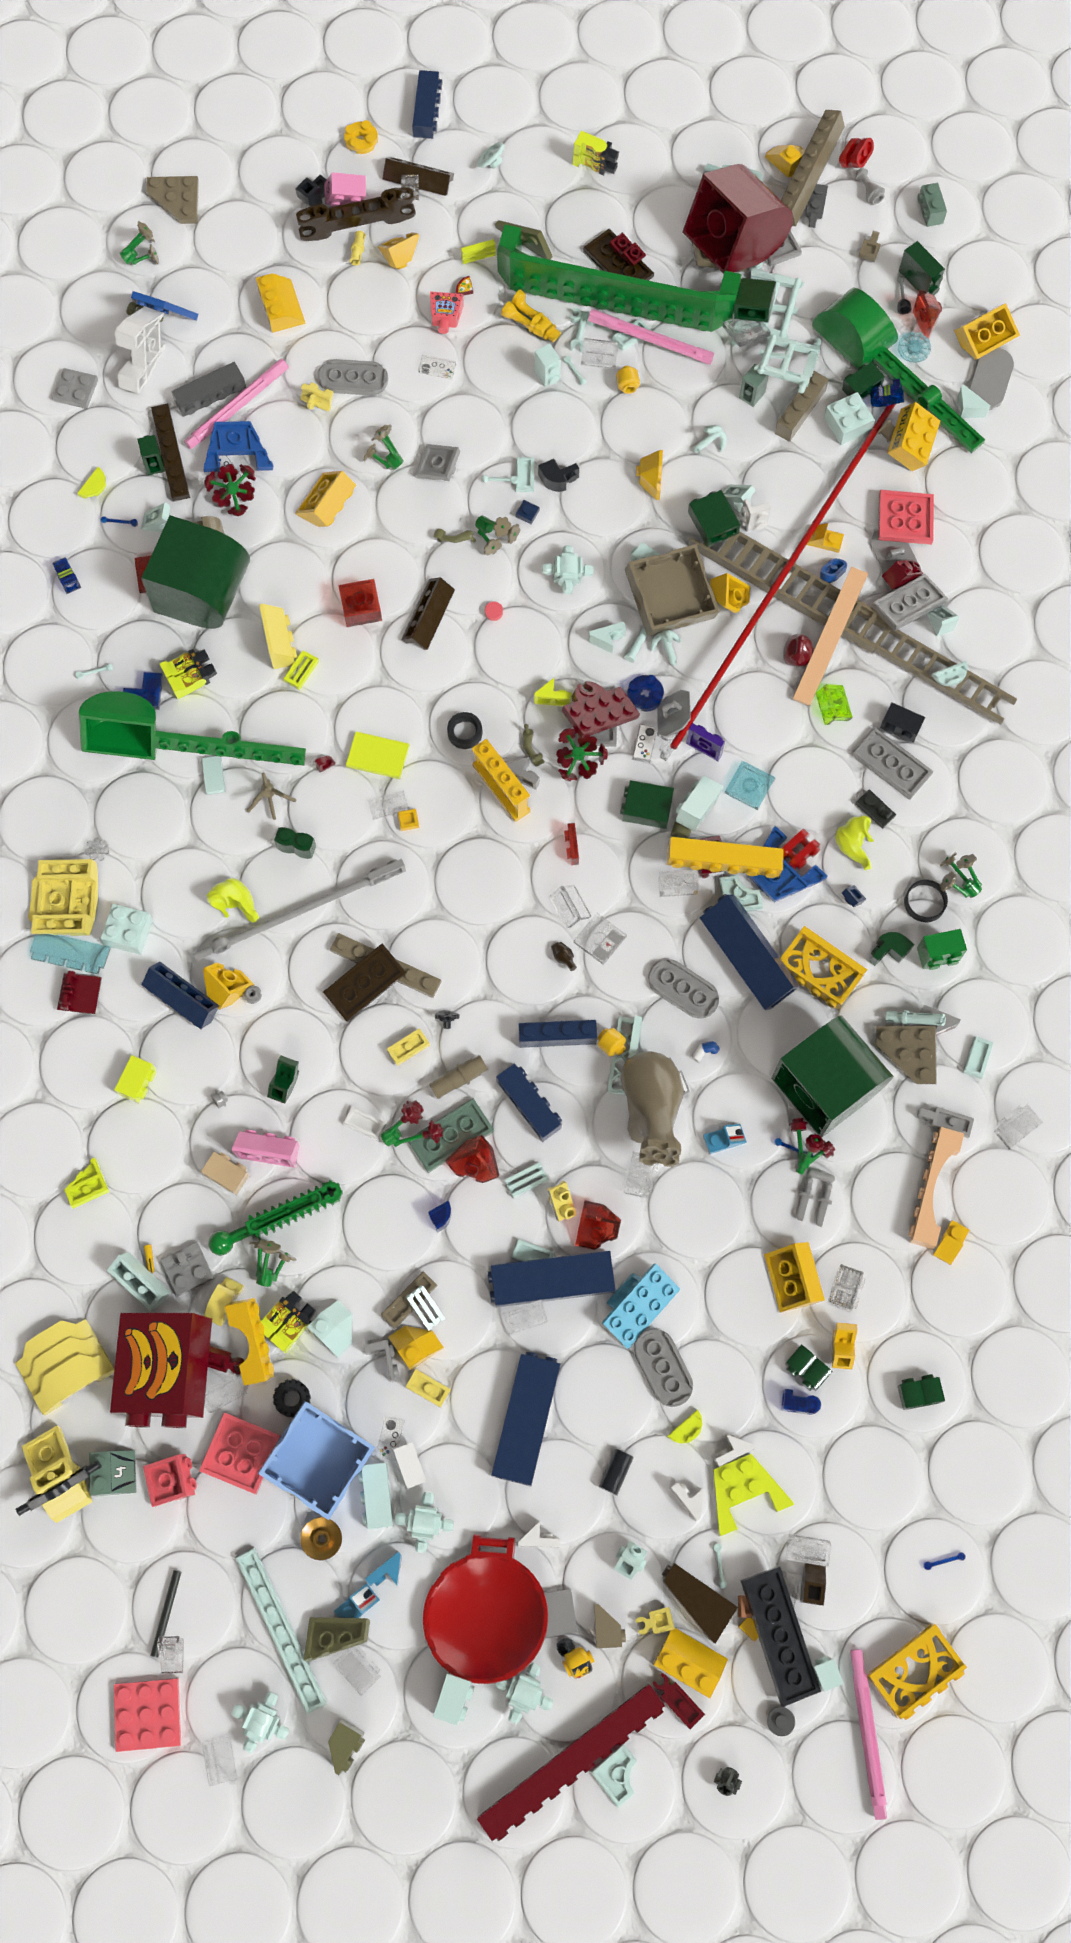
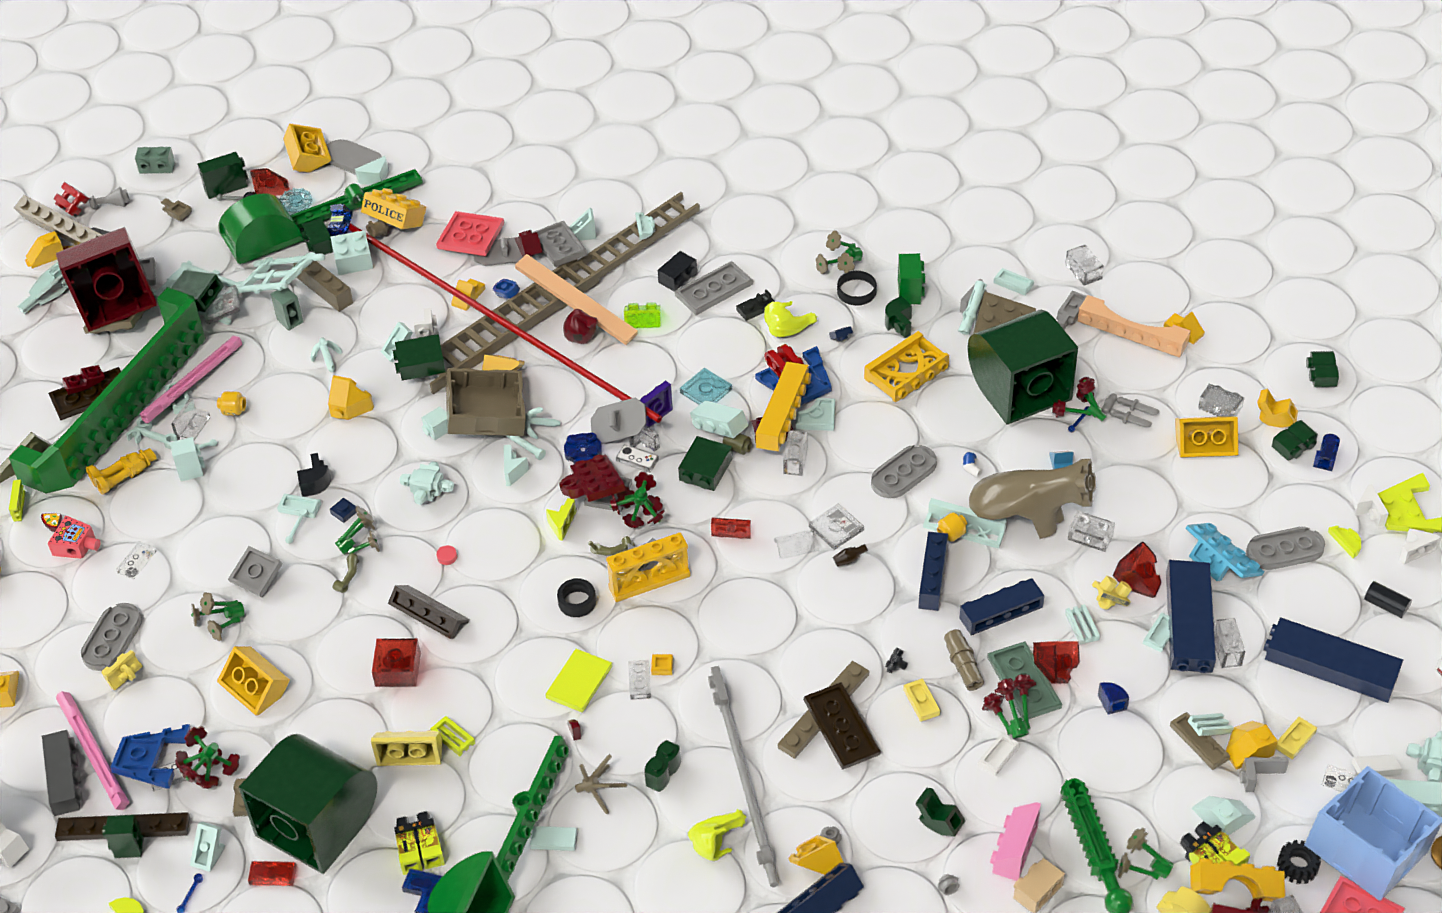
camera: 75 degrees left, 25 degrees down
(749, 951) = (880, 409): dark blue brick -> none

